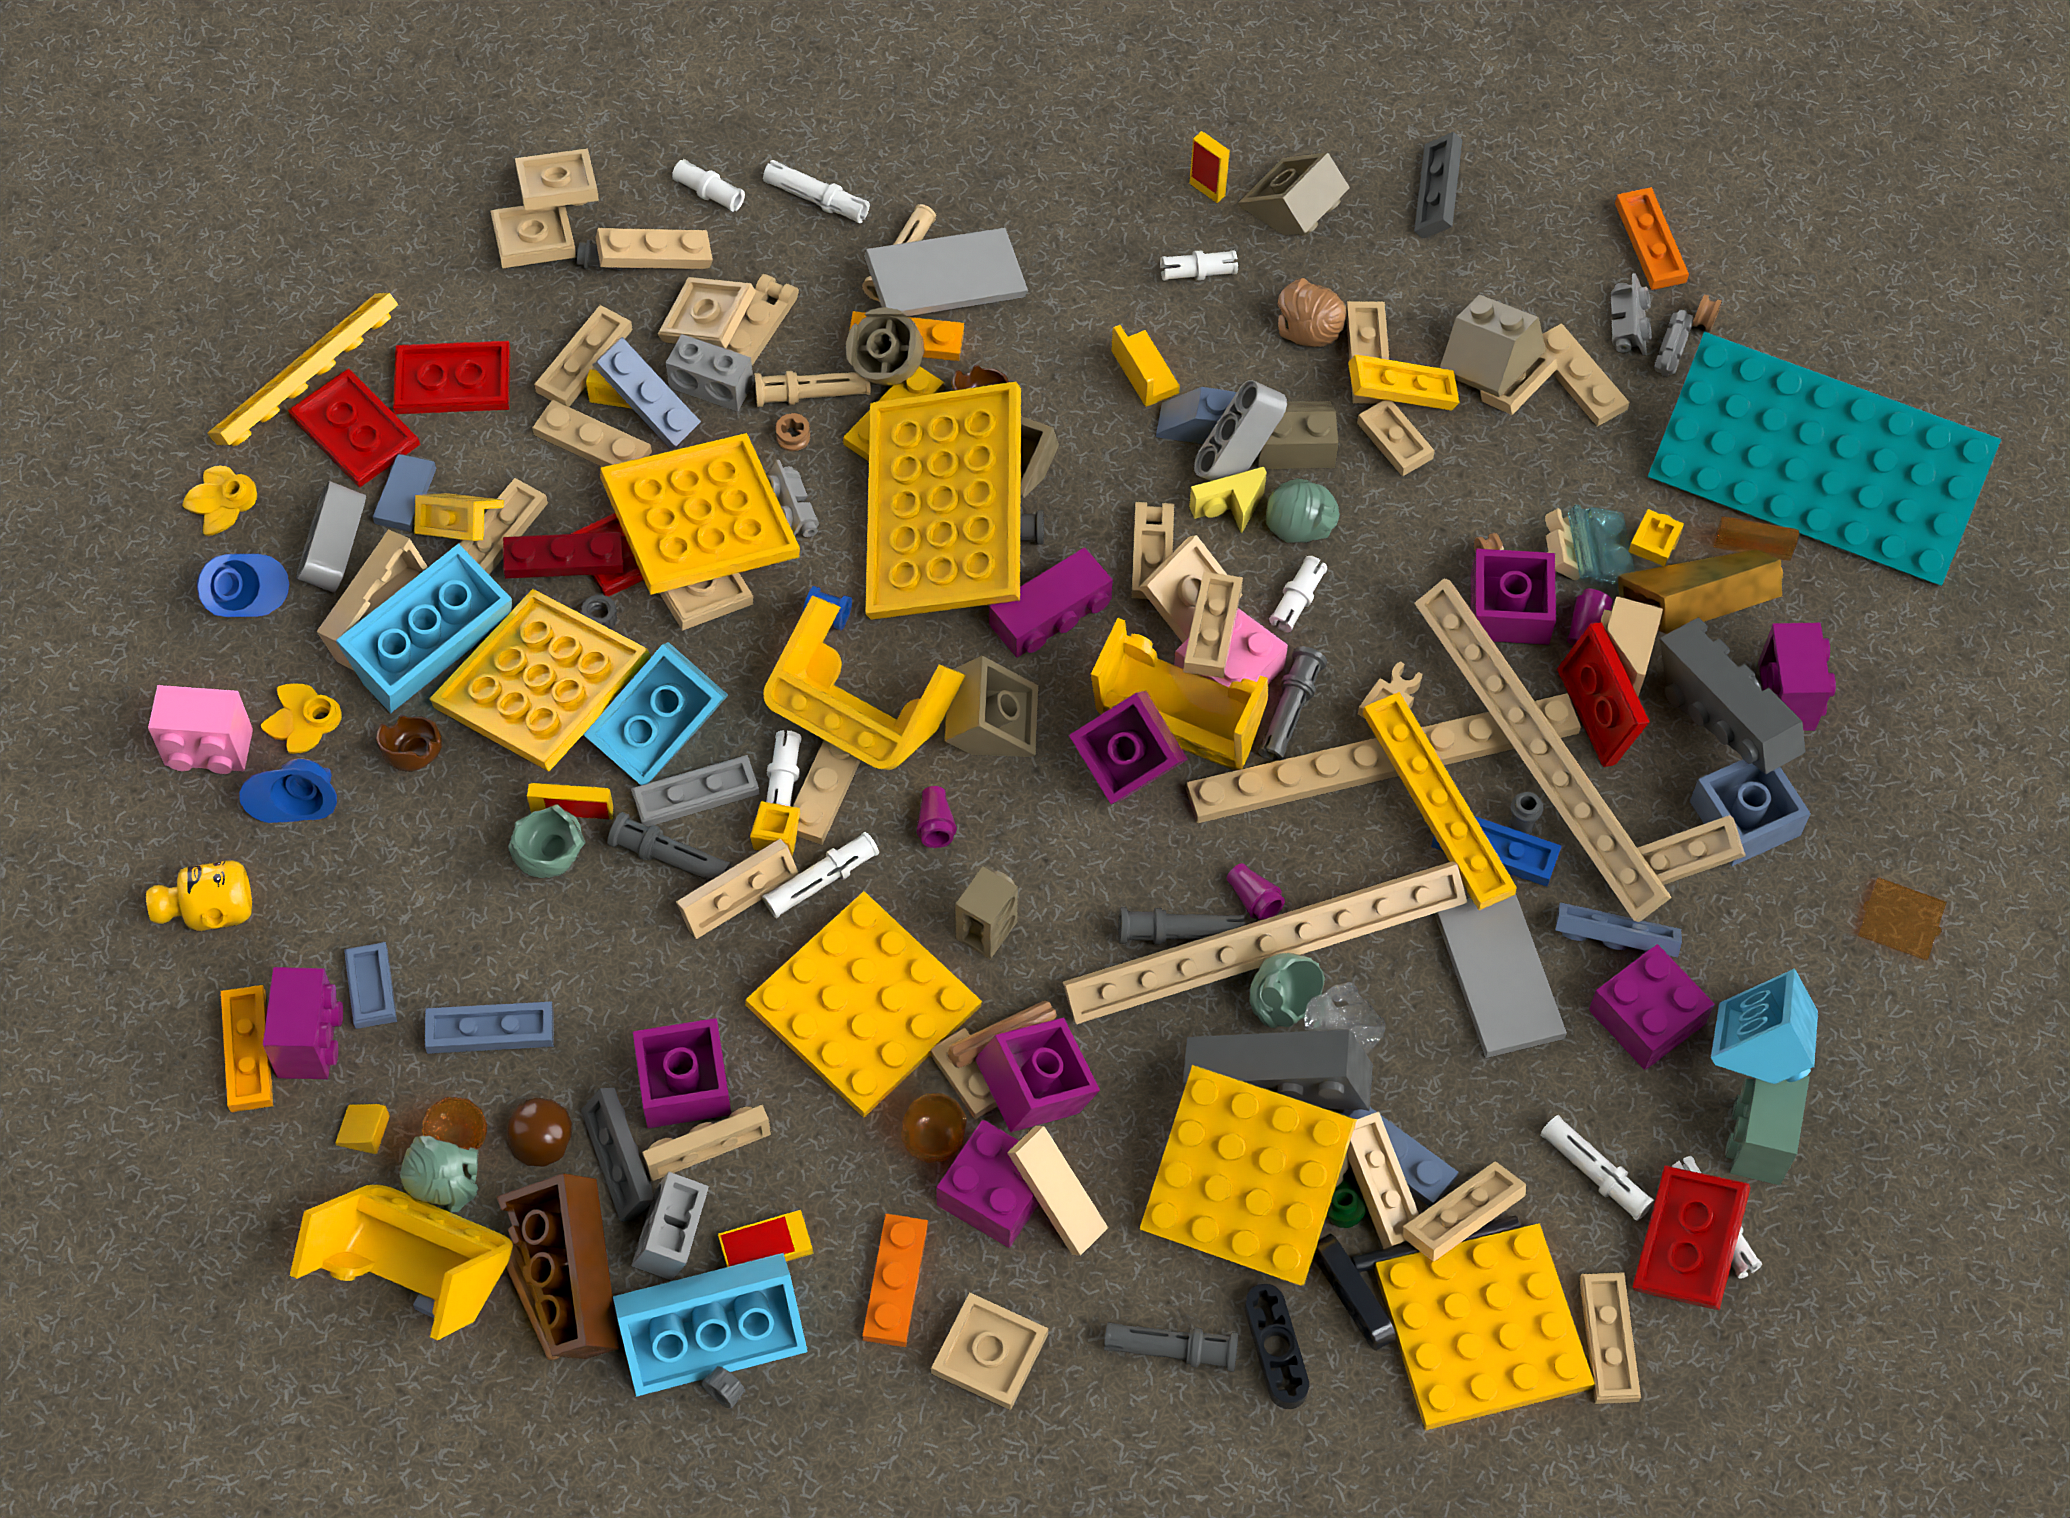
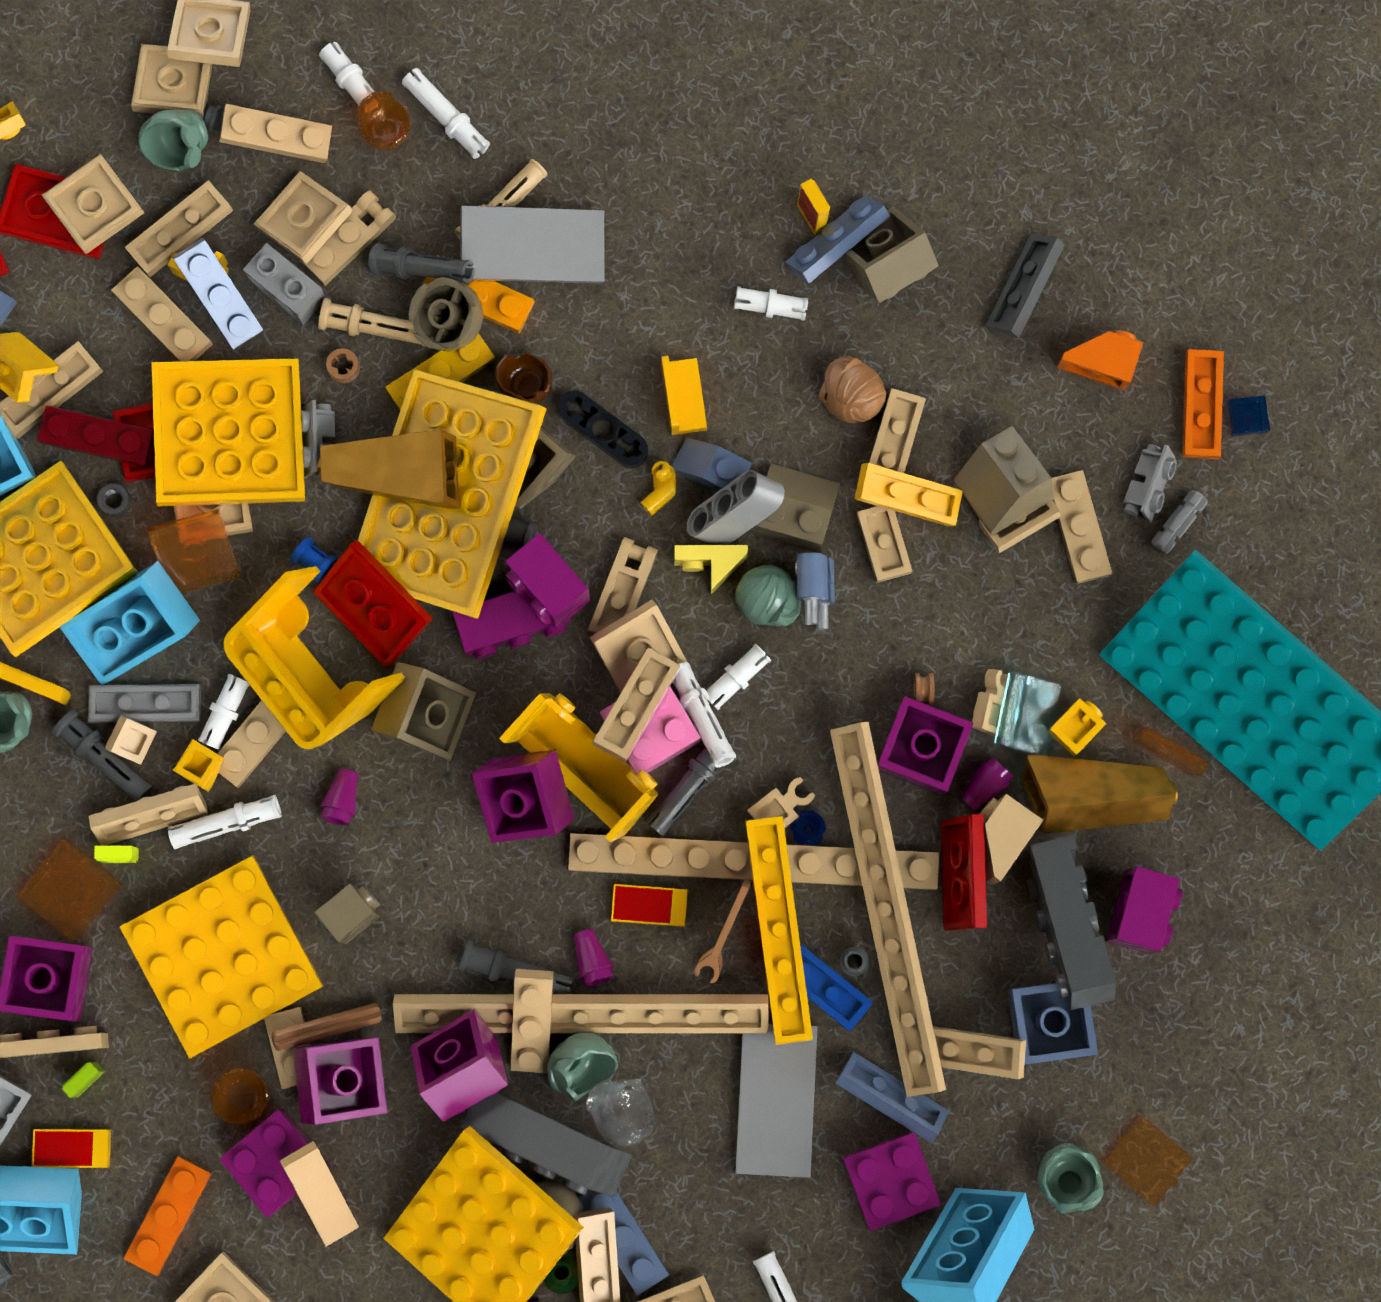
camera: 15 degrees right, 20 degrees up
(490, 353) = (93, 204): none -> tan plate
(554, 276) = (173, 139): none -> sand green hair
(675, 986) = (69, 890): none -> clear orange tile
(694, 824) = (130, 739): none -> tan plate
(704, 626) = (195, 551): none -> clear orange tile
(716, 935) = (116, 854): none -> neon yellow tile
(756, 1165) = (83, 1079): none -> lime tile
(757, 211) = (383, 121): none -> clear orange hair
(827, 319) = (407, 263): none -> dark grey pin
(884, 488) = (400, 467): none -> pearl gold slope
(902, 625) = (372, 604): none -> red tile
(1081, 536) = (547, 581): none -> magenta brick
(1084, 430) = (575, 422): none -> black beam
(1156, 449) = (664, 487): none -> yellow arm
(1160, 1018) = (458, 1065): none -> magenta brick
(1218, 958) = (531, 1020): none -> tan plate
(1241, 193) = (837, 238): none -> sand blue plate
(1293, 828) = (649, 905): none -> red tile
(1296, 638) = (695, 701): none -> white pin
(1345, 485) = (815, 587): none -> sand blue piece
(1385, 831) = (713, 956): none -> medium nougat flag
(1428, 707) = (817, 826): none -> clear blue plate
(1540, 225) = (1105, 359): none -> orange slope
(1698, 239) = (1248, 415): none -> clear blue tile
(1707, 313) = (1222, 501): medium nougat bush -> none
(1834, 946) = (1070, 1178): none -> sand green hair

